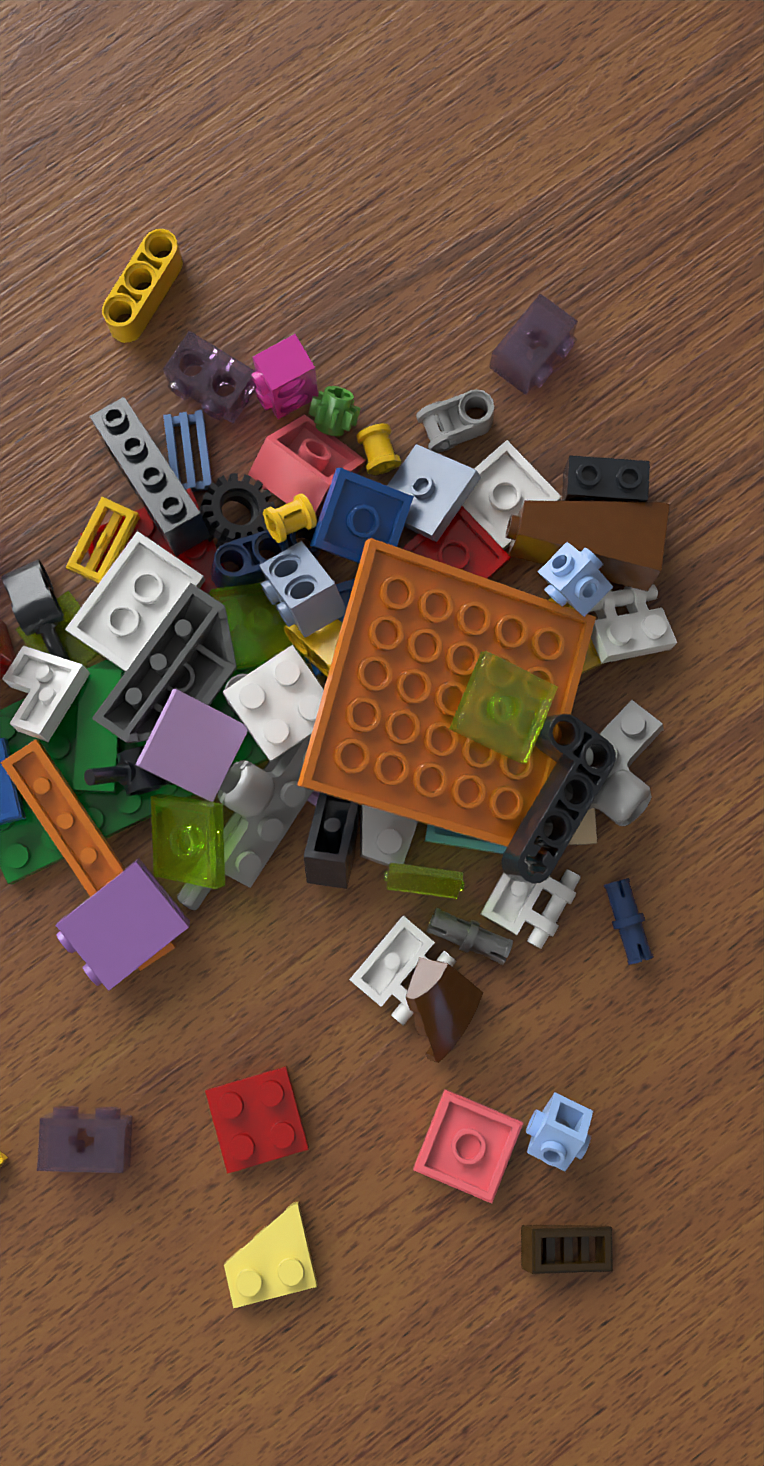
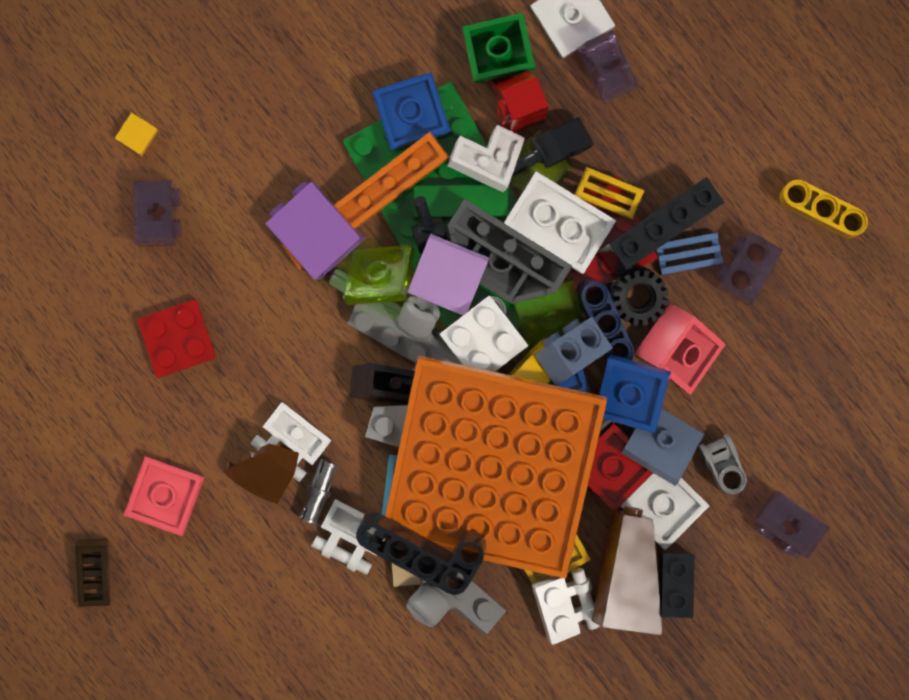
camera: 85 degrees right, 5 degrees up
(272, 1262) = (75, 356): light yellow wing -> none
(284, 377) = (747, 326): dark pink brick -> none
(290, 518) = (628, 327): yellow bush -> none
(334, 411) = (726, 367): bright green gear -> none
(378, 449) = (697, 404): yellow bush -> none
(424, 880) = (357, 454): clear neon green piece -> none
(503, 707) = (487, 507): clear neon green plate -> none
(559, 1132) = (176, 563): light blue brick -> none
(575, 578) = (591, 559): light blue brick -> none
(628, 921) = (335, 612): dark blue pin -> none

